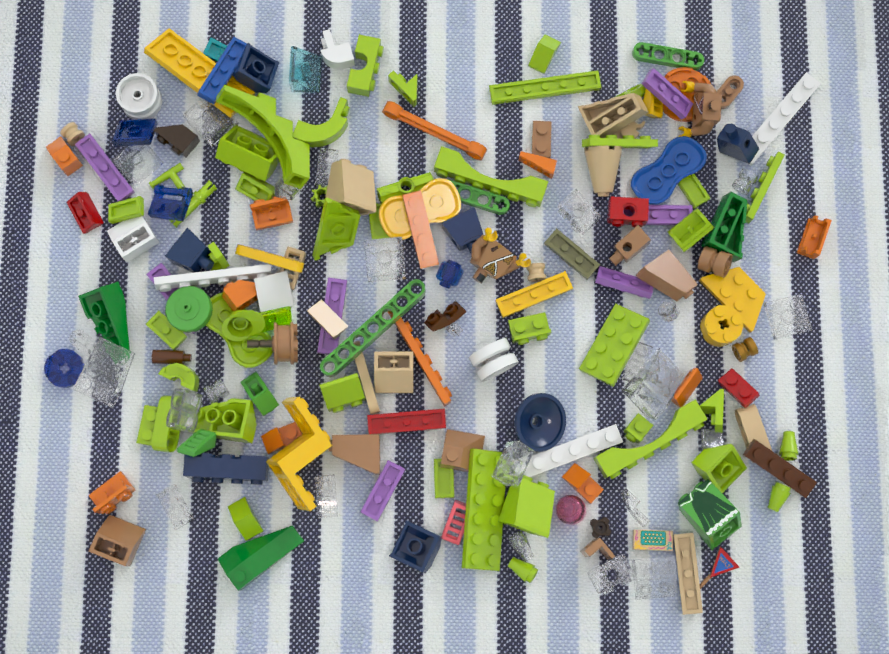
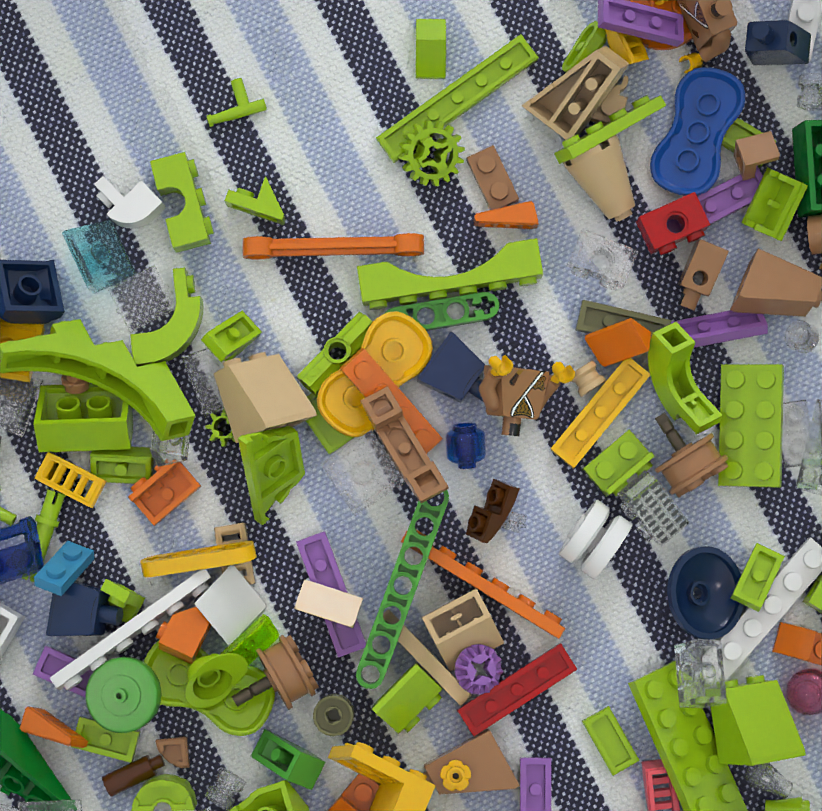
camera: 25 degrees left, 5 degrees up
(138, 305) = (45, 725): none -> orange slope
(194, 225) = (64, 568): none -> dark azure plate
(200, 357) = (175, 750): none -> medium nougat tile
(217, 171) = (53, 470): none -> yellow slope
(254, 132) = (74, 385): none -> medium nougat plate
(297, 381) = (333, 714): none -> olive wheel
(315, 106) = (142, 298): none -> clear piece
(351, 448) = (461, 782): none -> yellow plate
(352, 149) = (231, 336): none -> lime slope
(383, 394) = (466, 672): none -> medium lavender gear
(414, 251) = (403, 446): none -> medium nougat slope
(425, 34) = (243, 109): none -> lime piece
(457, 449) = (609, 689): medium nougat slope -> none
(515, 99) = (420, 158): none -> lime gear
(535, 360) = (652, 508): none -> clear brick
(564, 259) = (619, 342): none -> orange slope
(569, 345) = (690, 462): none -> medium nougat wheel
(574, 429) = (757, 577): none -> lime plate
(584, 294) = (673, 380): none -> lime arch
(693, 194) = (753, 152): none -> medium nougat panel

